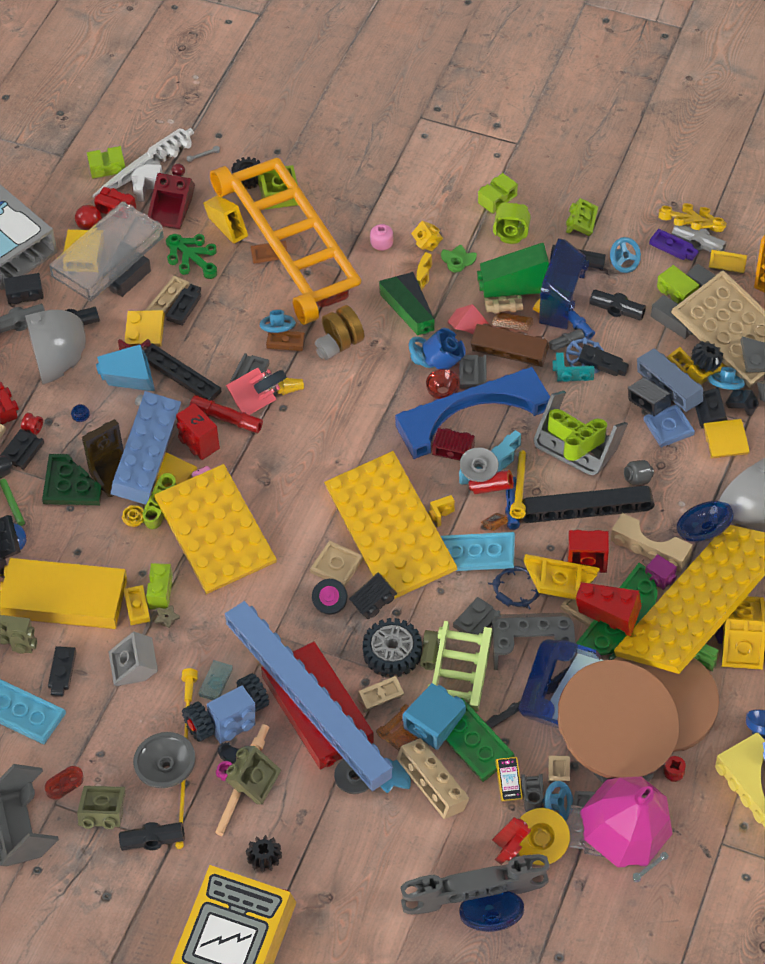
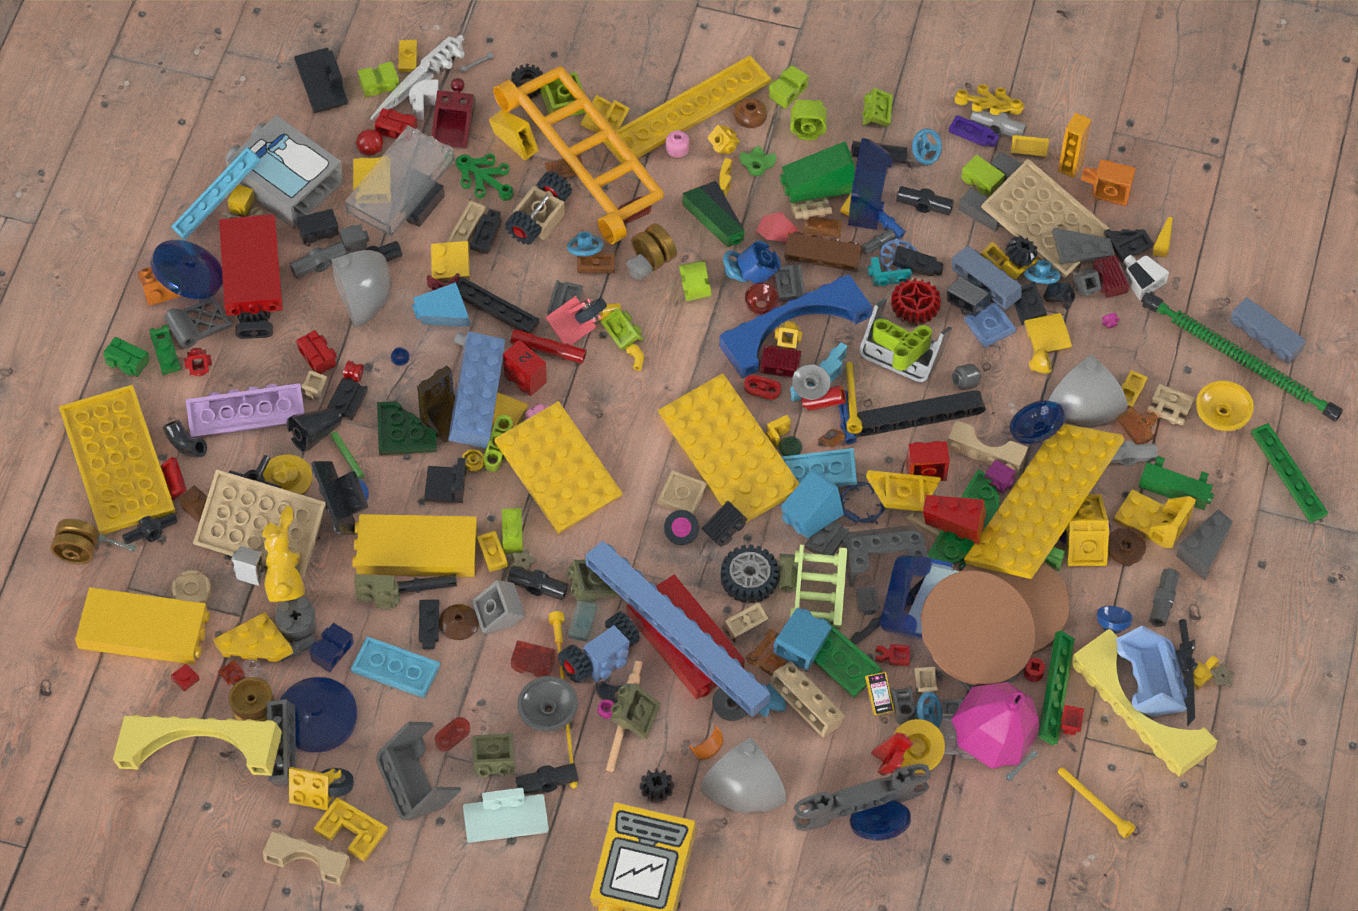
camera: 10 degrees left, 5 degrees up
(53, 160) = (321, 79): none -> black bracket
(56, 299) = (354, 238): none -> dark grey brick
(65, 631) = (427, 583): none -> black pin
(93, 678) = (458, 629): none -> reddish brown dish
(103, 535) = (446, 483): none -> black bracket
(103, 870) = (505, 816): none -> light aqua bracket
(138, 143) = (407, 55): none -> yellow plate
(158, 714) = (533, 659): none -> clear red brick
(176, 639) = (537, 582): none -> black piece
(225, 644) = (587, 584): none -> olive plate
(237, 286) = (540, 209): none -> brick
(301, 402) = (621, 328): none -> lime bracket
(313, 428) = (639, 356): none -> yellow arm
(324, 206) = (612, 112): none -> yellow slope
(325, 819) = (710, 746): none -> orange helmet
(354, 856) = (744, 781): none -> light grey brick
(379, 362) = (695, 280): none -> lime brick
(401, 205) = (692, 107): none -> yellow plate
(432, 469) = (763, 386): none -> red plate
(452, 526) = (792, 441): none -> clear green plate
(457, 219) = (752, 118): none -> dark orange piece
(458, 422) = (788, 341): none -> yellow brick
(464, 584) = (812, 505): none -> dark azure slope
(509, 683) = (867, 600): none -> black bracket
(533, 741) = (897, 654): none -> red plate
(585, 395) = (926, 297): none -> red gear
(695, 789) = (1056, 687): none -> green plate
(708, 823) = (1072, 719): none -> red bracket
(716, 464) = (1041, 362): none -> yellow brick
(753, 942) = (1125, 827): none -> yellow piece

